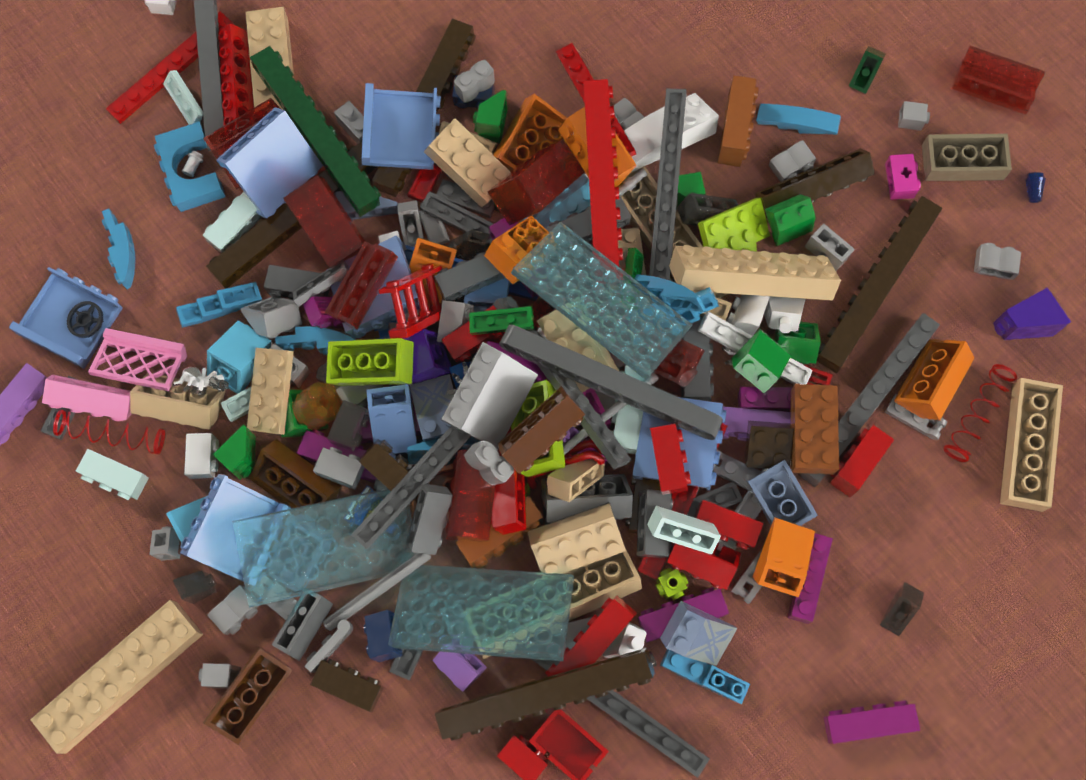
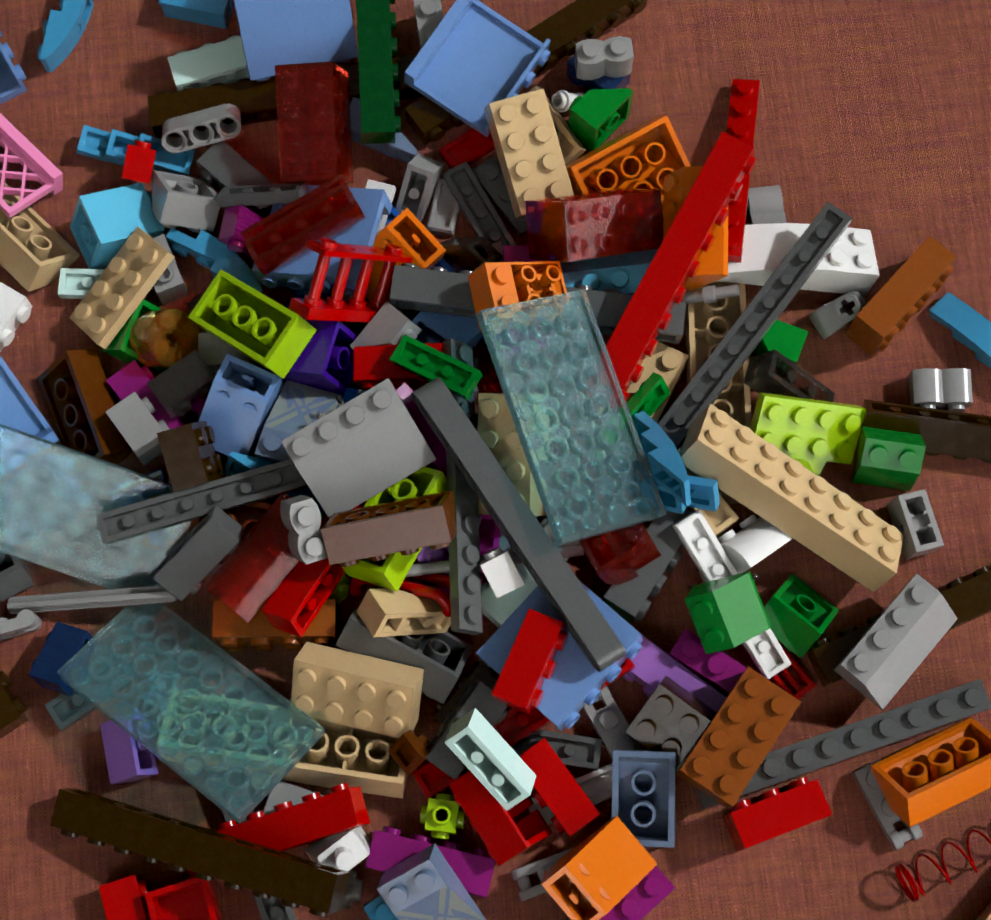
camera: 30 degrees right, 0 degrees up
(198, 382) = (52, 228): animal -> none
(229, 308) = (139, 162): none -> red brick
(238, 453) = (40, 338): green slope -> none
(252, 275) = (192, 138): none -> light grey beam
(466, 119) = (562, 100): none -> white pin
(618, 417) = (501, 571): none -> white brick
(632, 556) = (410, 751): none -> reddish brown tile
(706, 155) = (835, 314): none -> light grey piece
(784, 313) = (802, 572): white torso -> none
(864, 319) = (897, 641): none -> light grey slope

